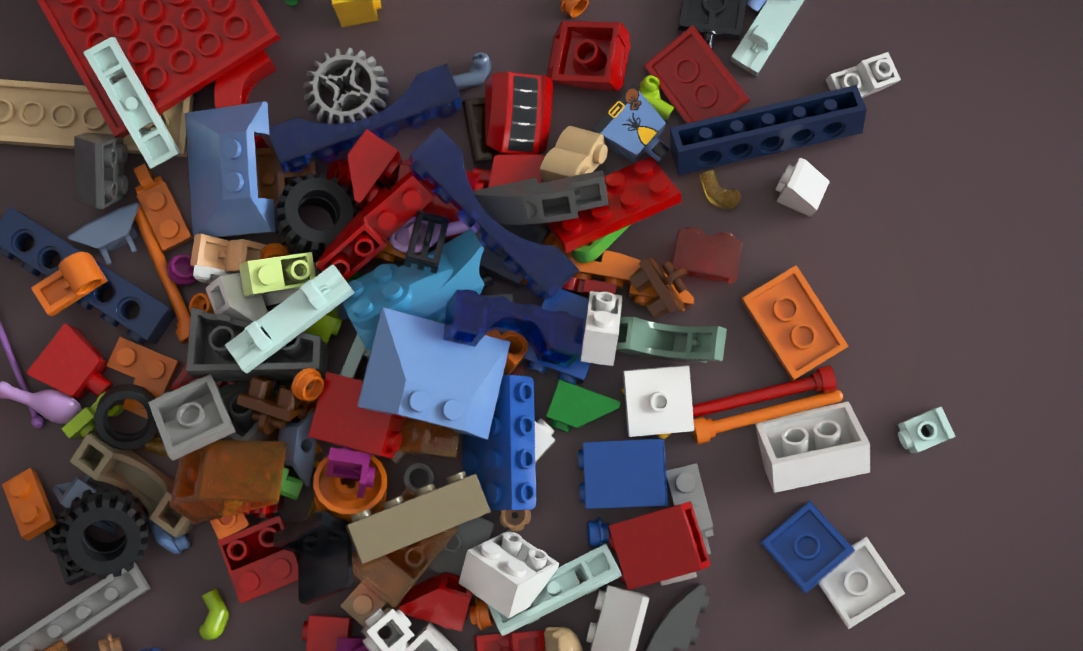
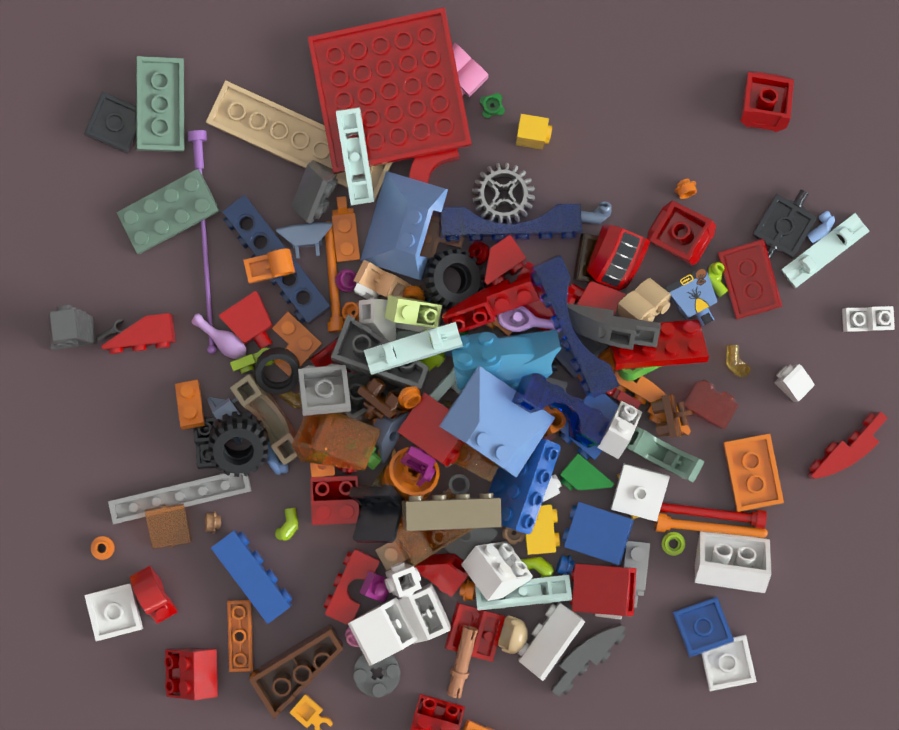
camera: 20 degrees right, 5 degrees up
(422, 259) = (516, 342): black tile -> none
(553, 506) = (542, 537): none -> yellow brick
(564, 545) = (540, 565): none -> lime arm
(734, 445) = (680, 543): none -> lime plate
(767, 129) = (786, 332): dark blue brick -> none
(900, 257) = (842, 455): none -> red slope
(937, 425) = (823, 575): light aqua brick -> none

